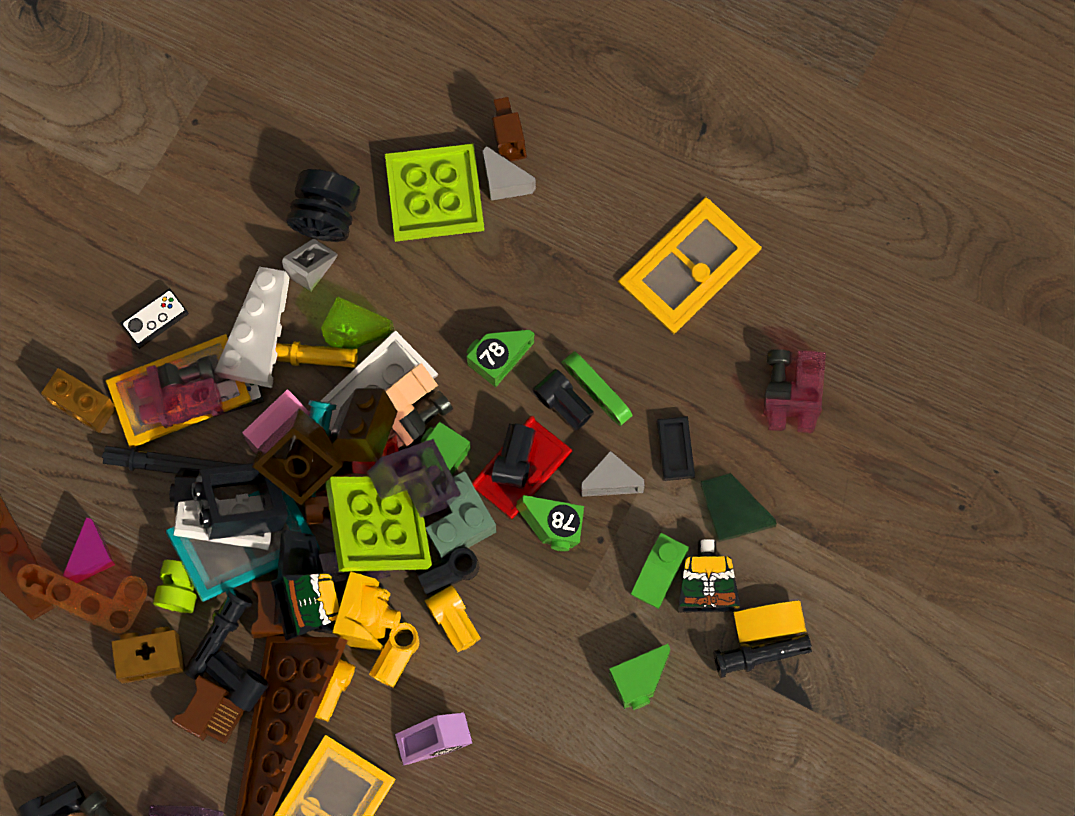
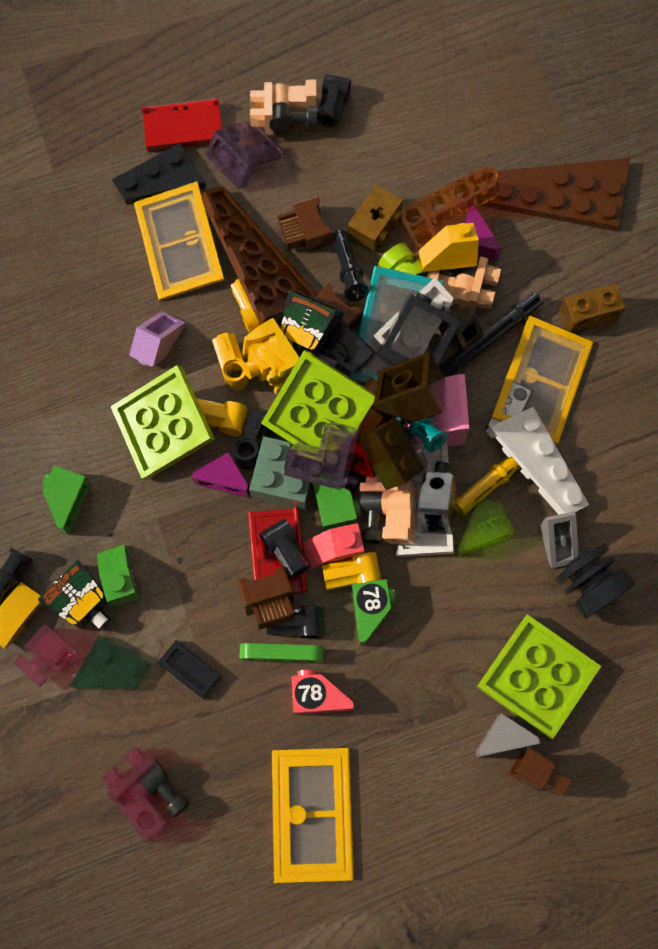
camera: 135 degrees right, 0 degrees up
(129, 551) = (451, 248): none -> yellow slope
(140, 522) = (468, 283): none -> light nougat hips
(154, 318) = (611, 407): tile -> none
(173, 399) = (539, 362): clear pink hips -> none
(243, 684) = (299, 255): black piece -> none
(378, 366) = (437, 500): none -> black torso
(475, 423) = (333, 546): none -> coral slope
(477, 389) = (359, 569): none -> yellow piece
(501, 566) = (222, 476): none -> magenta slope
(504, 653) = (162, 422): none -> lime plate
(553, 521) = (216, 535): bright green slope -> none
(567, 429) = (268, 598): none -> reddish brown piece
(604, 334) = (316, 694): none -> slope
(612, 478) = (209, 603): light grey slope -> none
(767, 564) = (49, 651): none -> clear pink brick

